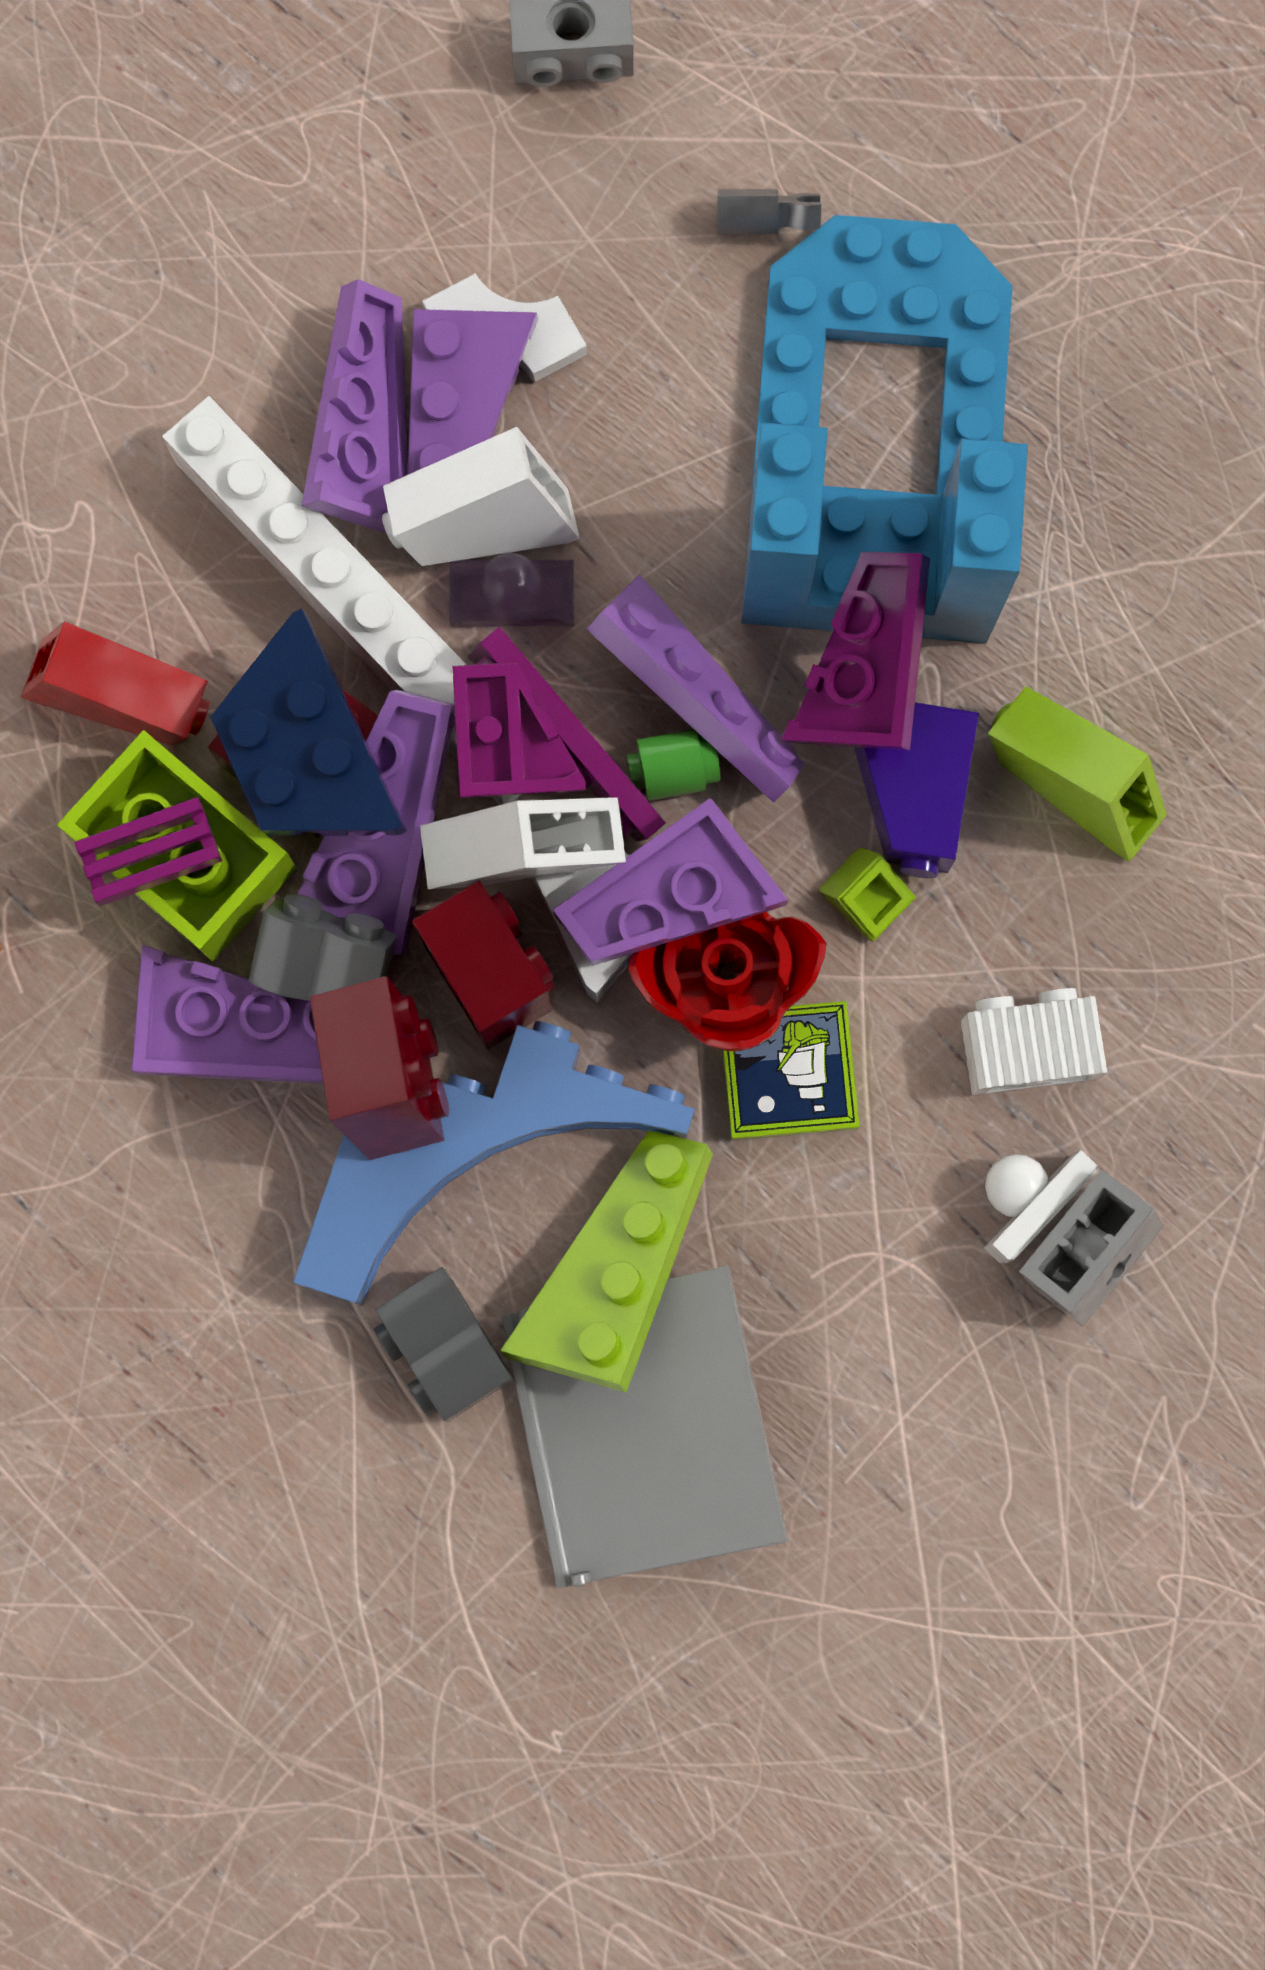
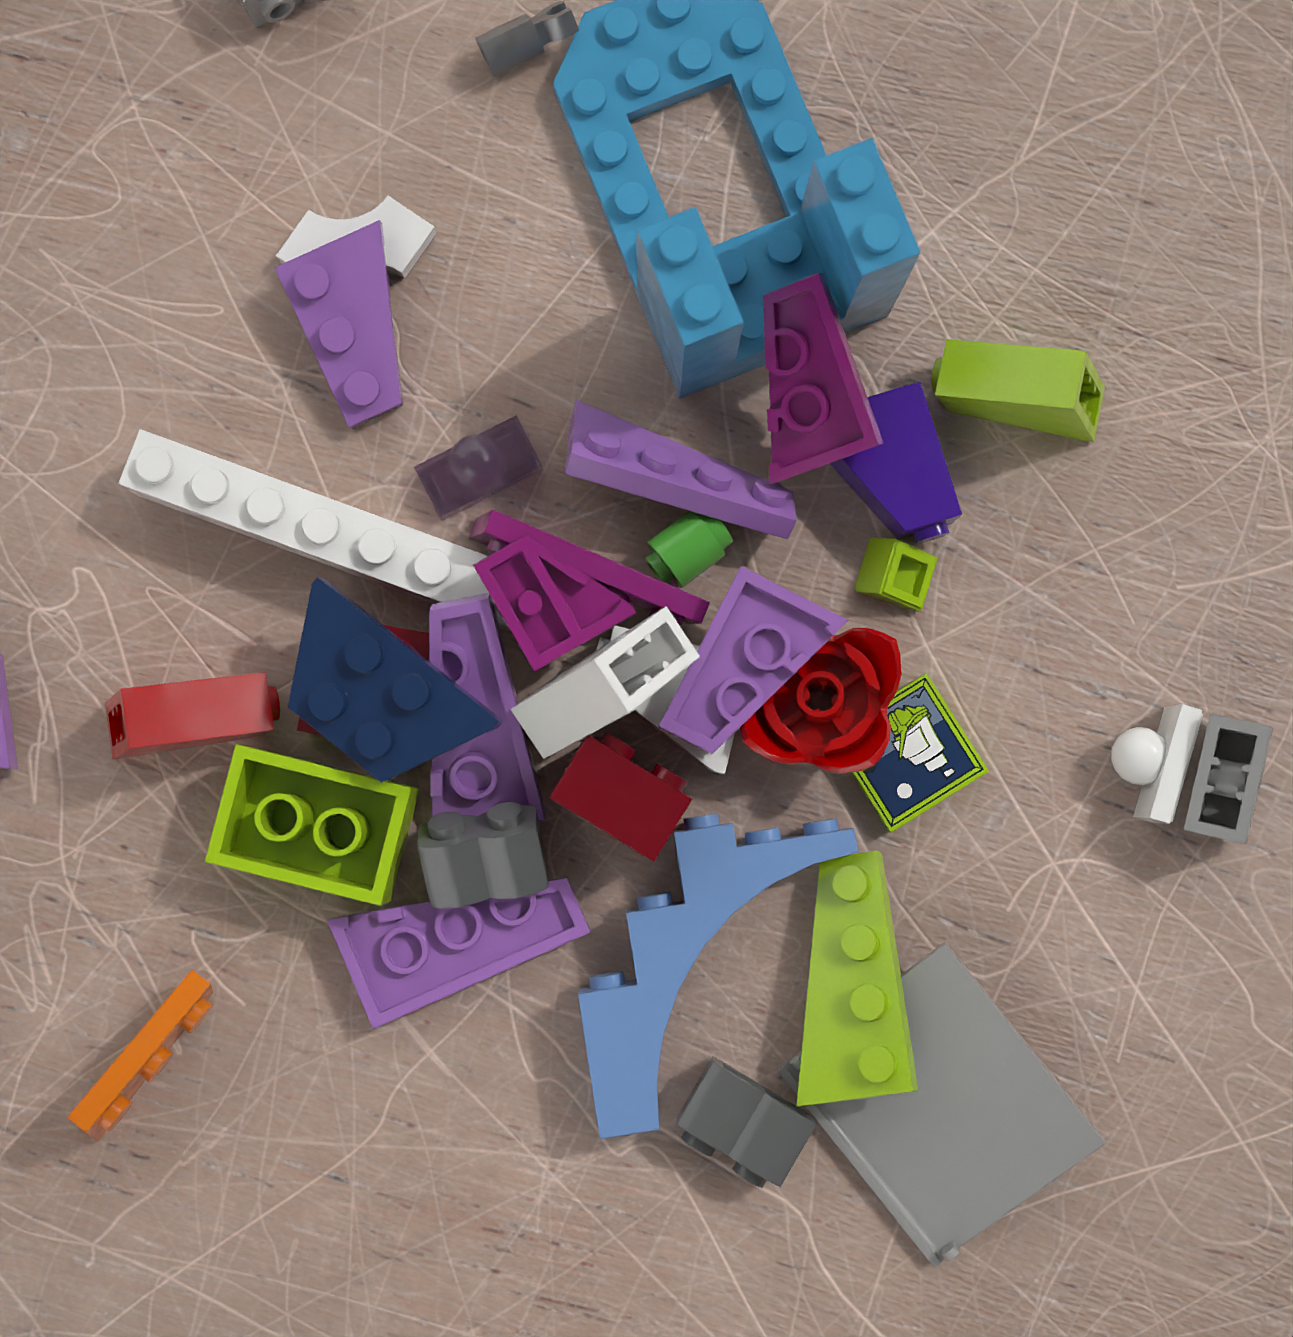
camera: 30 degrees left, 5 degrees up
(141, 828) = (259, 885): magenta tile -> none
(361, 410) = (281, 390): medium lavender wing -> none
(379, 1068) = (584, 934): dark red brick -> none
(480, 504) = (416, 408): white slope -> none
(1033, 1043) = (1096, 633): white brick -> none

